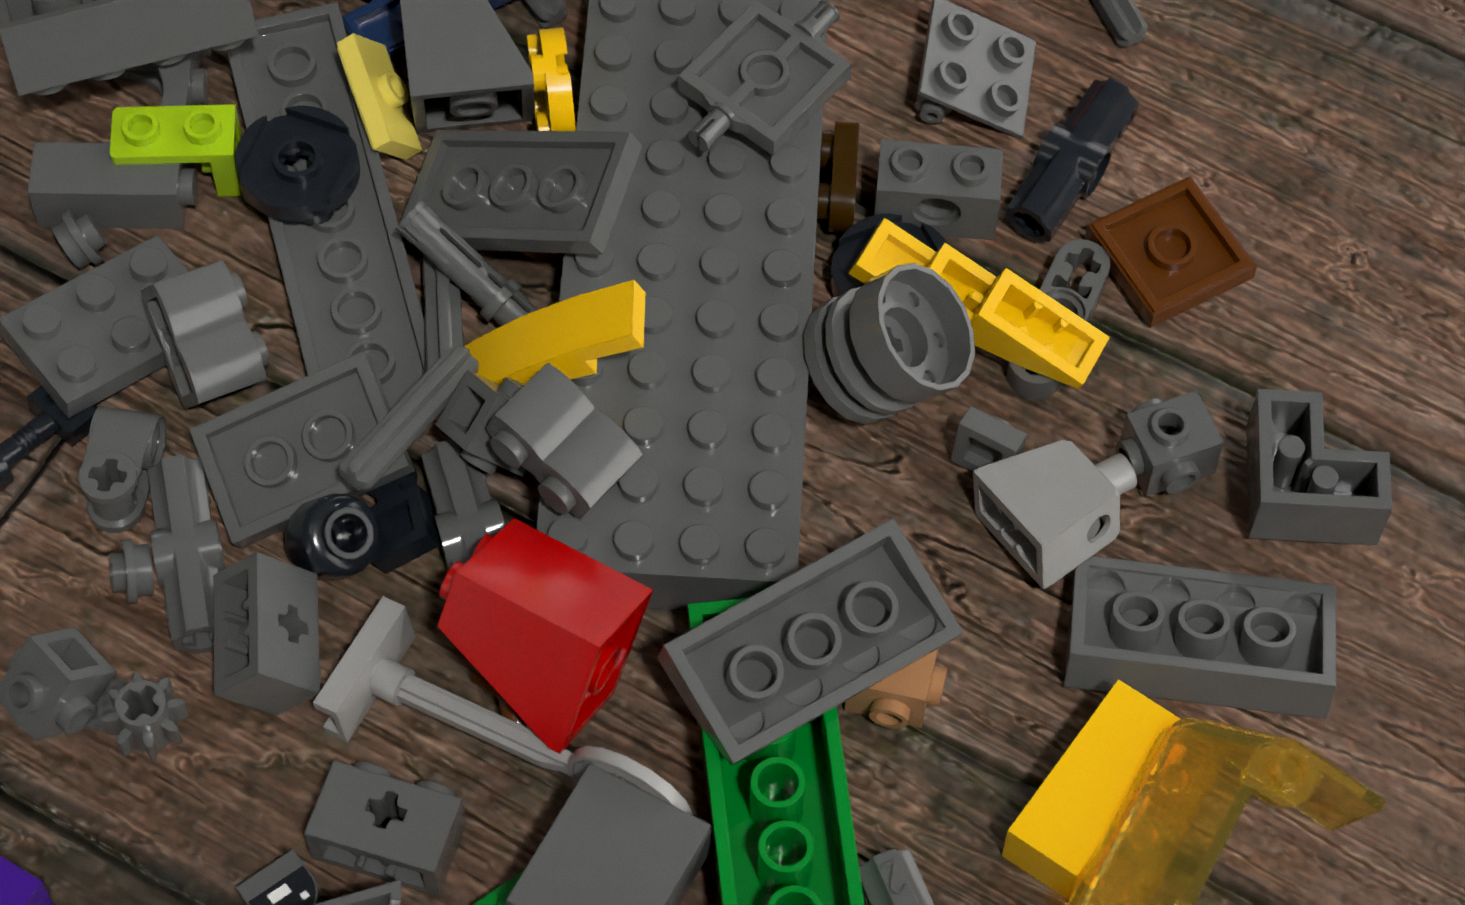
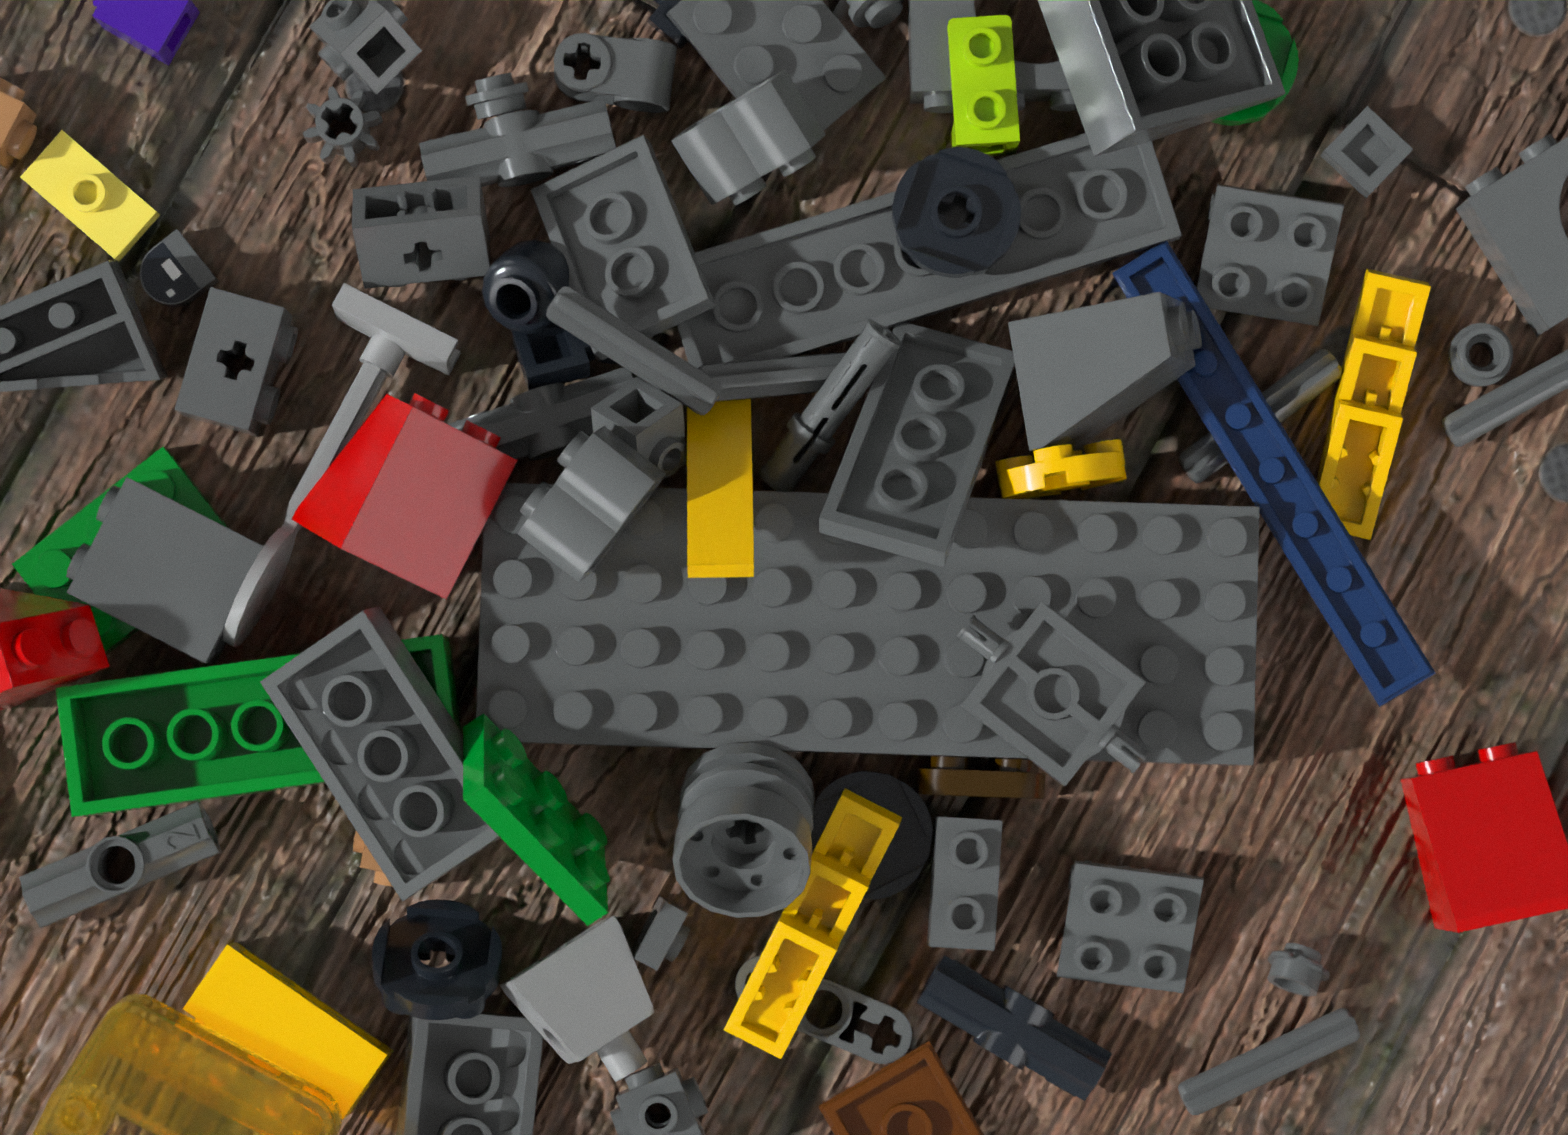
camera: 90 degrees right, 25 degrees up
(379, 96) = (1057, 285): light yellow plate -> none
(890, 498) = (535, 818): none -> green plate
(1044, 656) = (437, 992): none -> black plate

